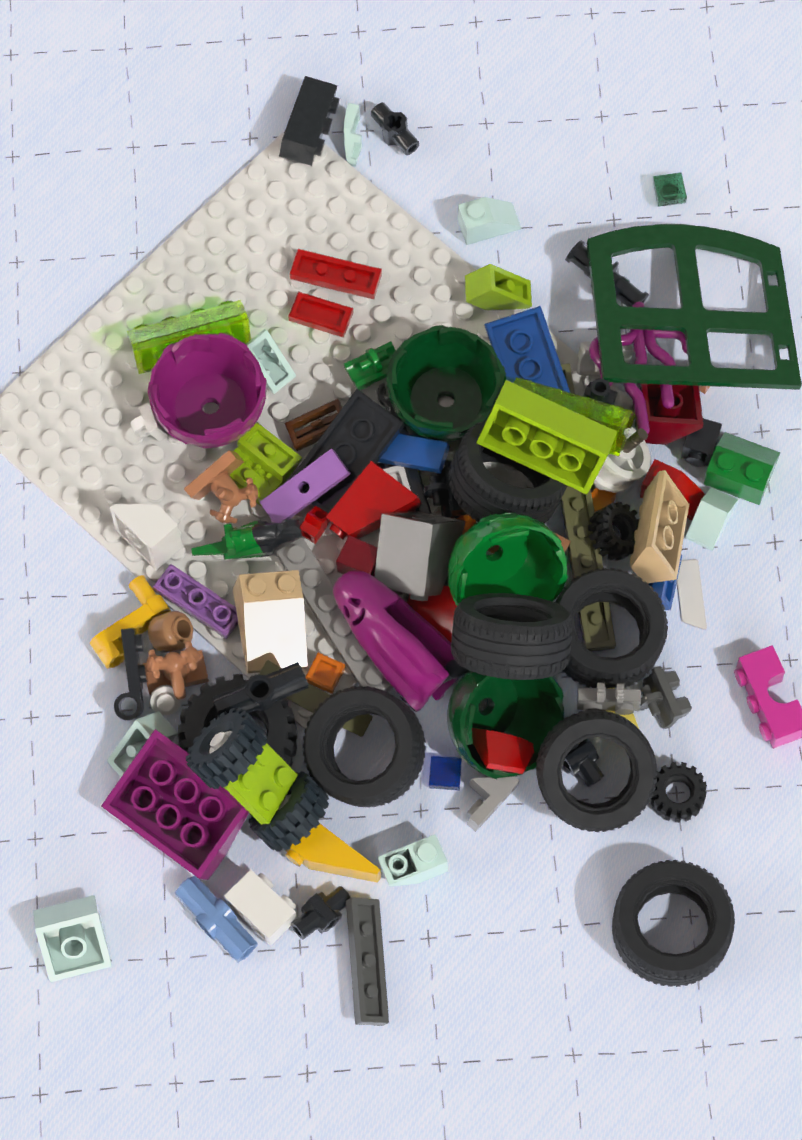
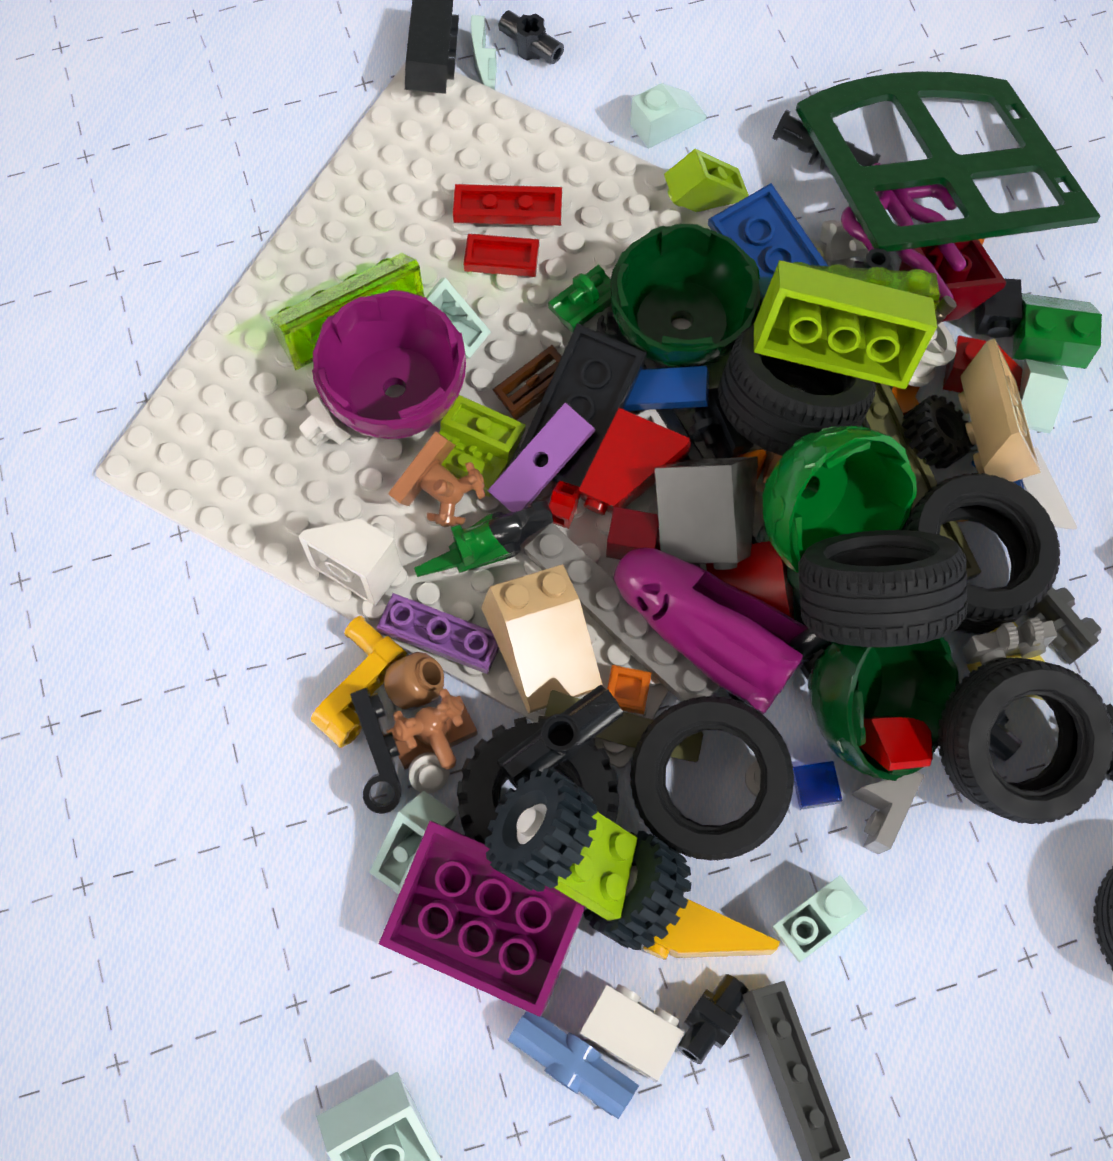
camera: 15 degrees left, 0 degrees up
(669, 189) = (863, 42): clear green plate -> none

